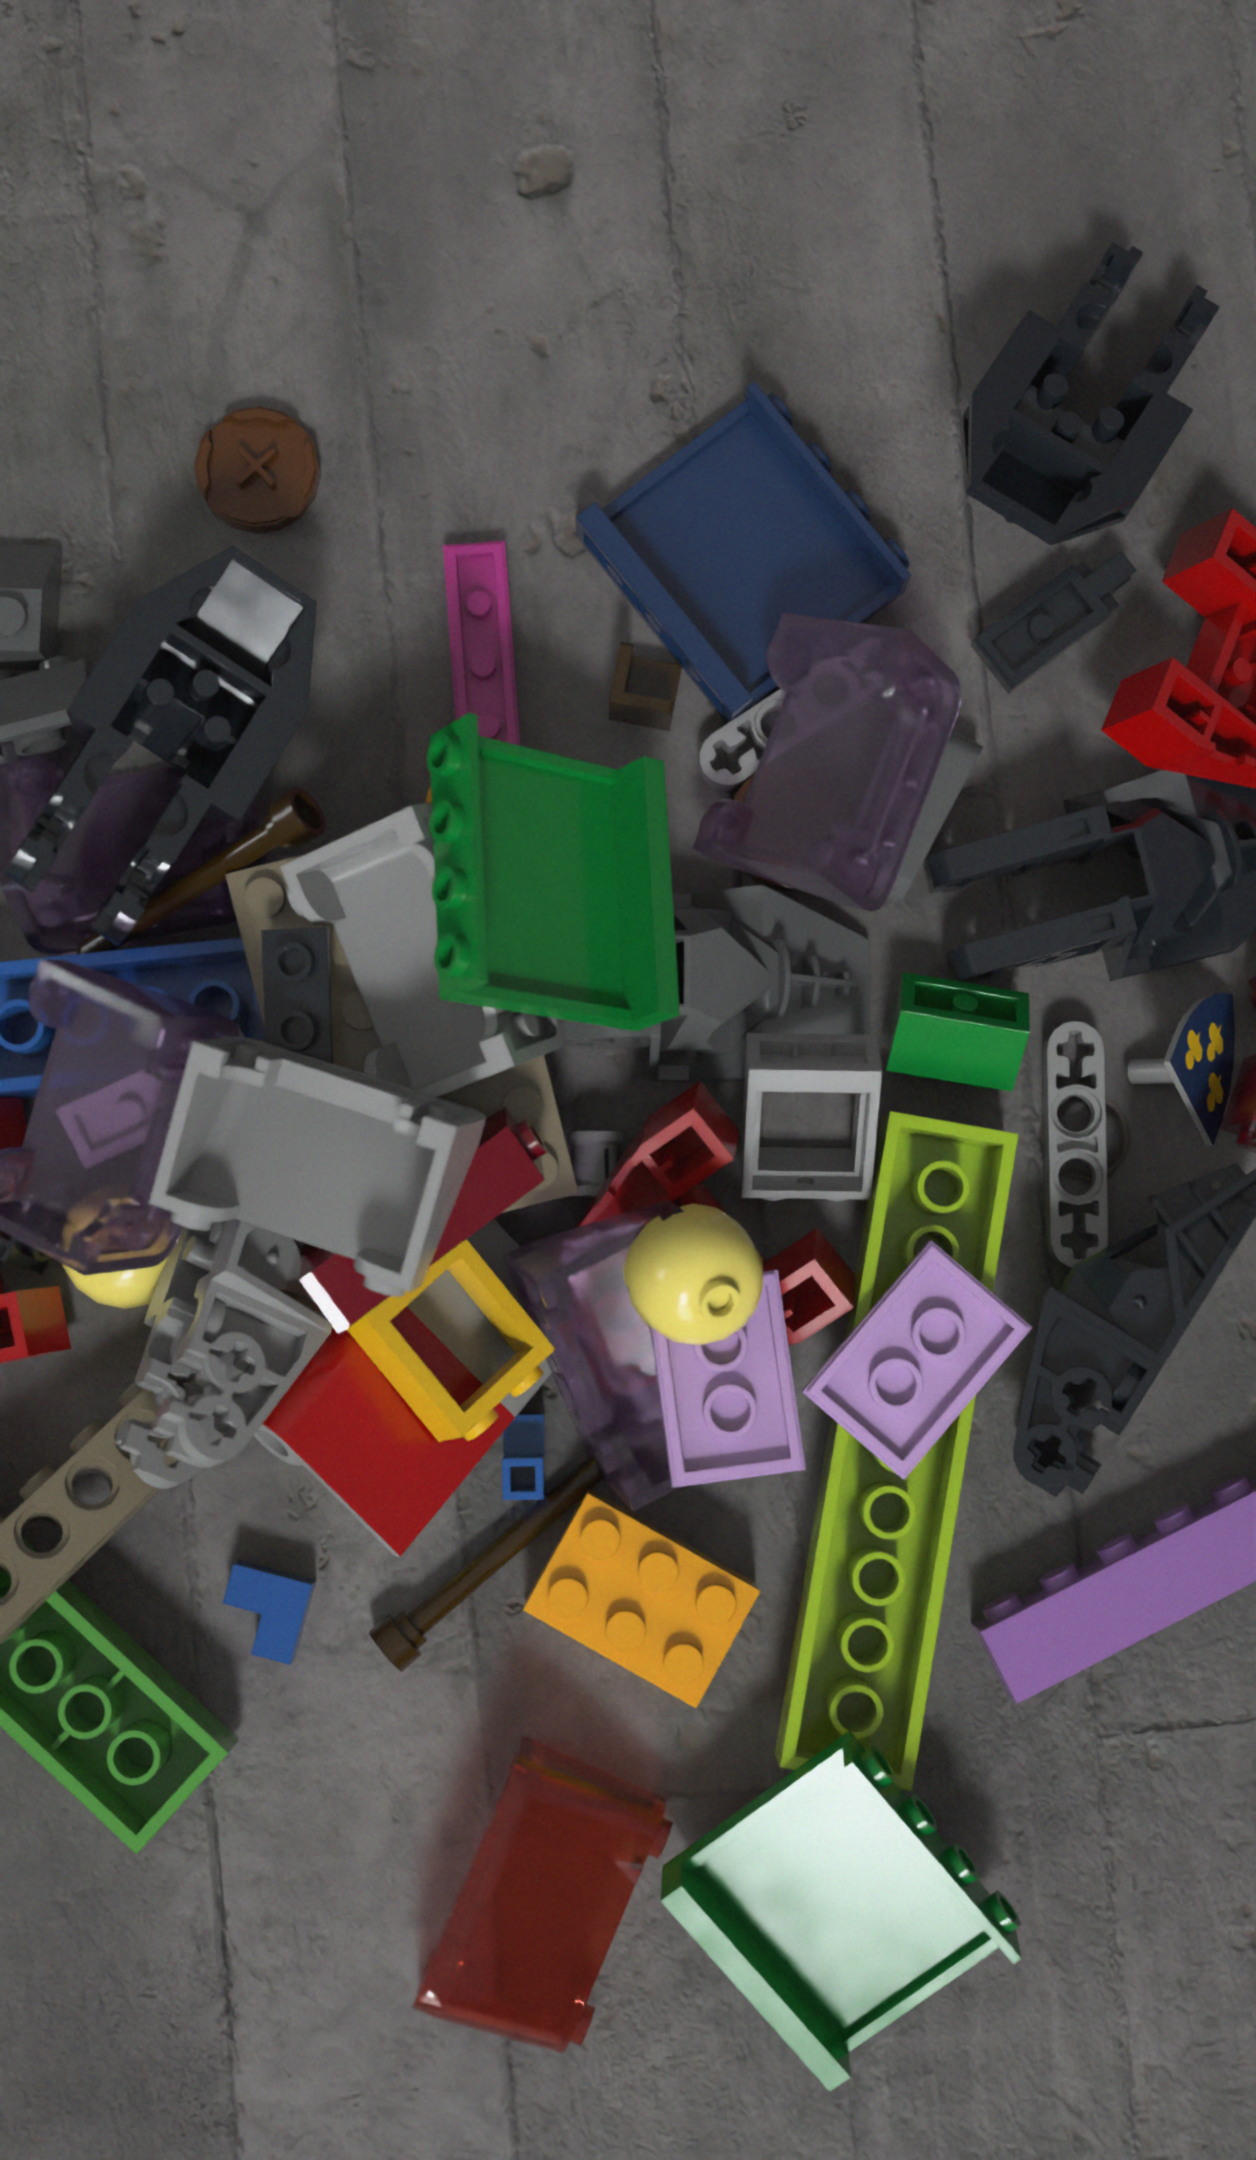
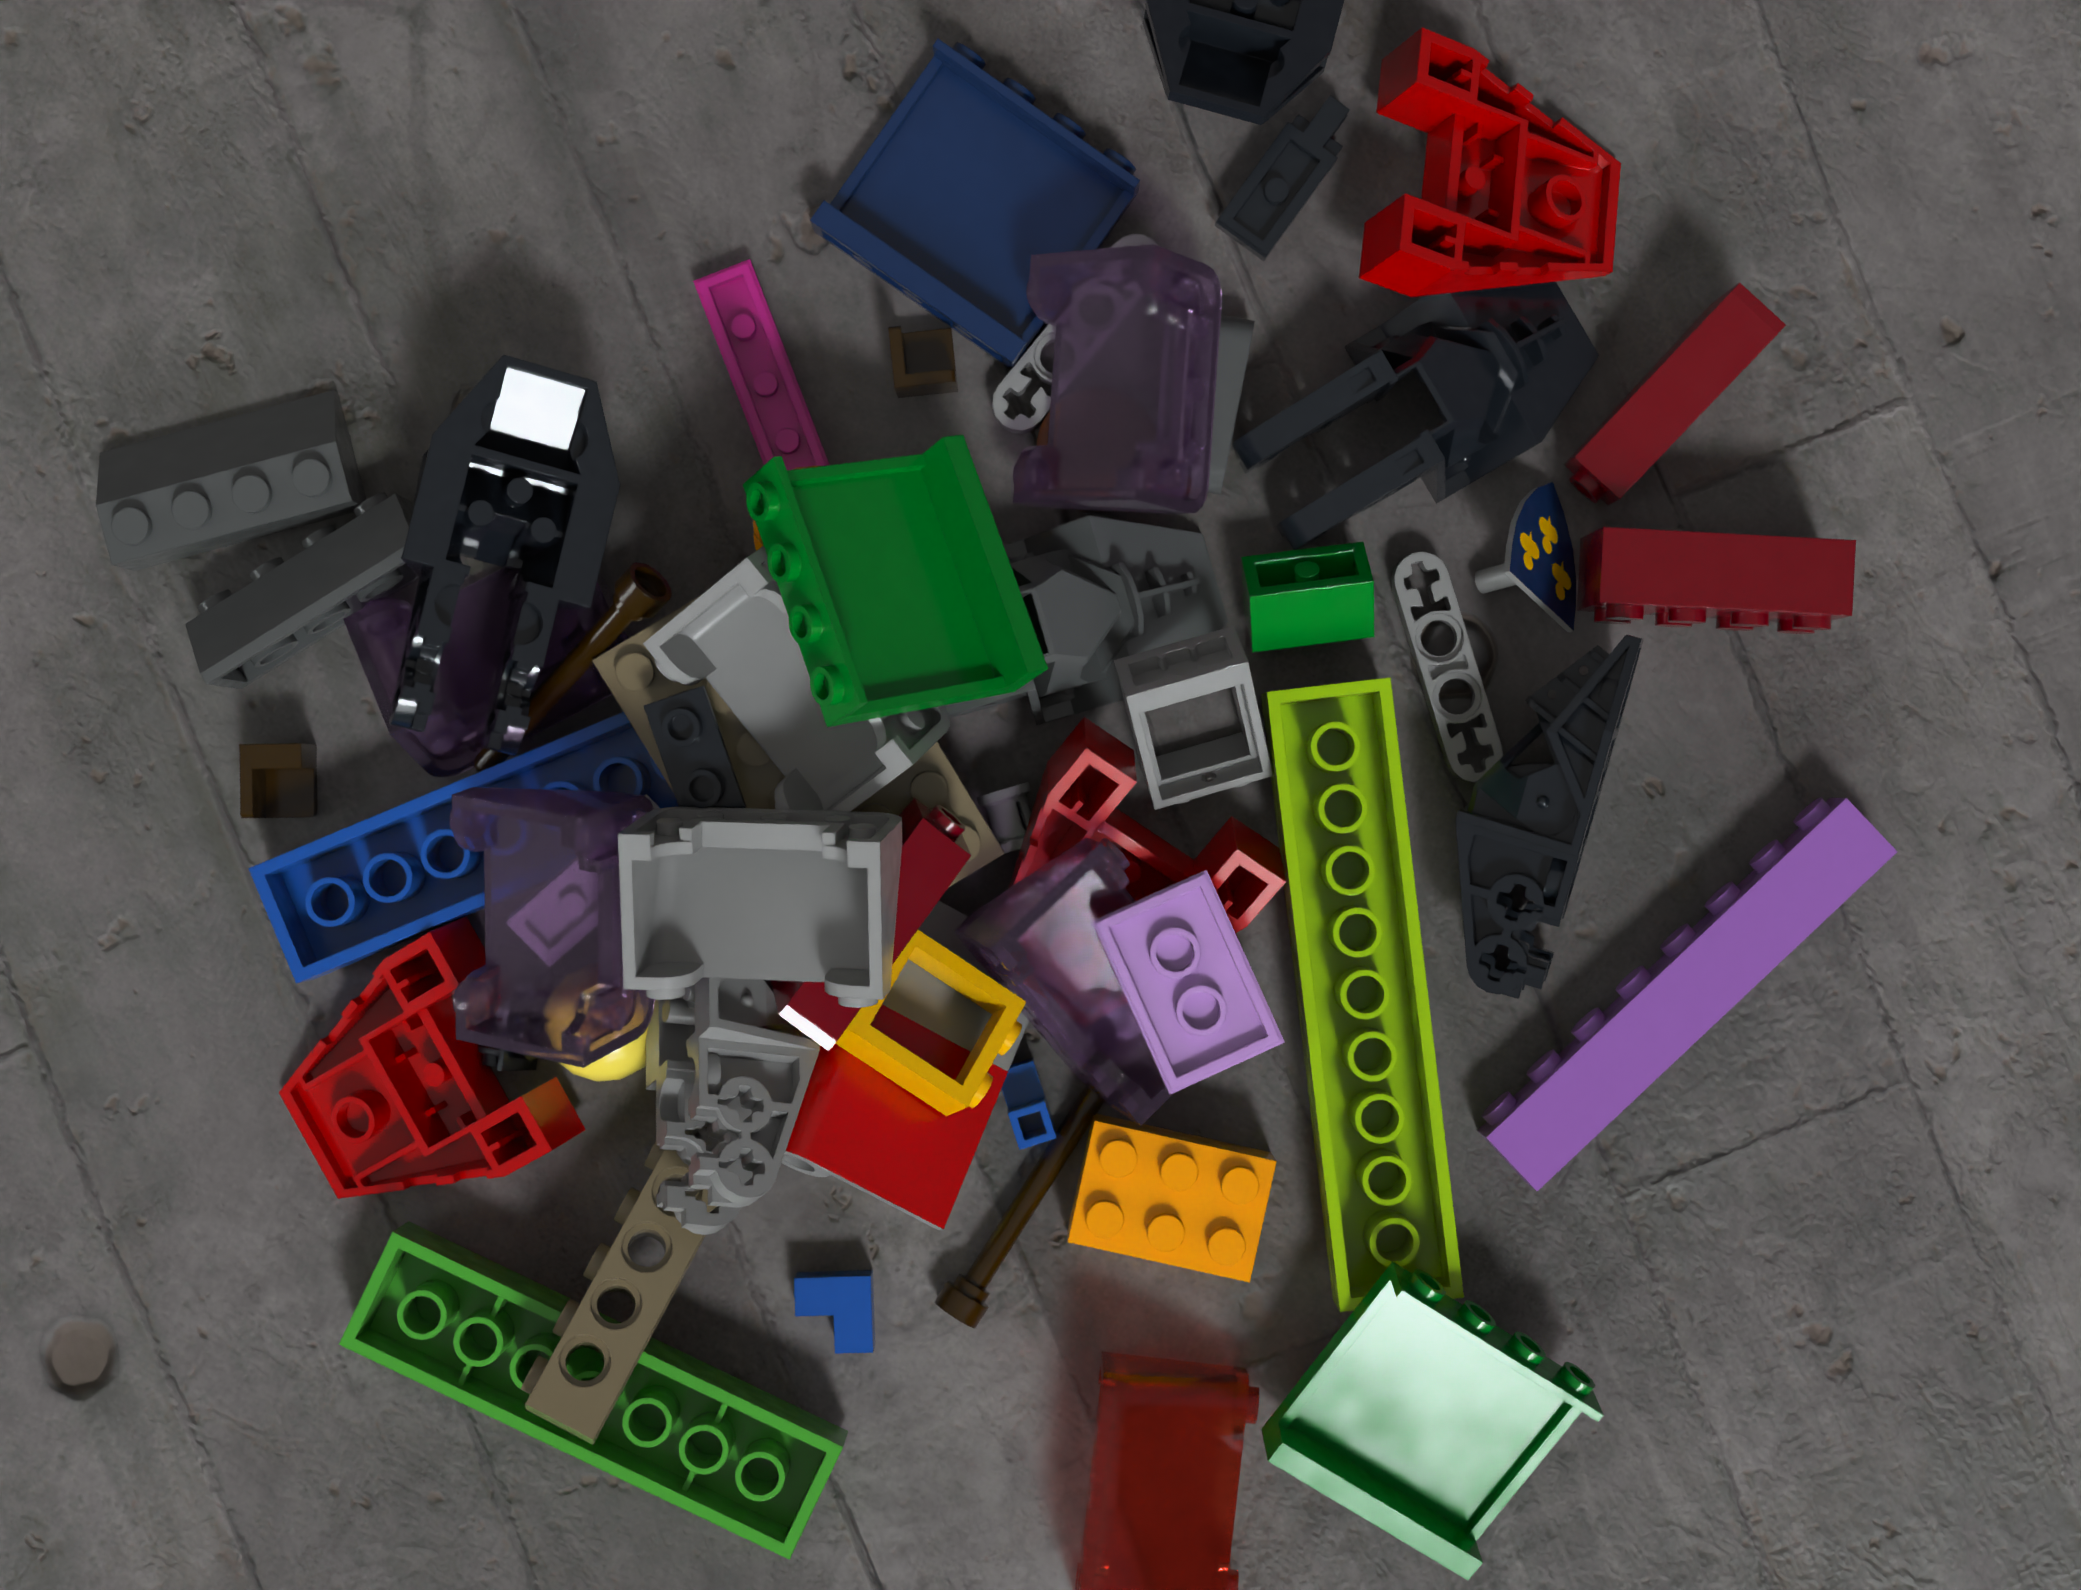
camera: 15 degrees left, 5 degrees up
(257, 470) = (497, 260): reddish brown tile -> none
(694, 1275) = (1132, 900): light yellow cylinder -> none
(916, 1359) = (1356, 912): lavender tile -> none

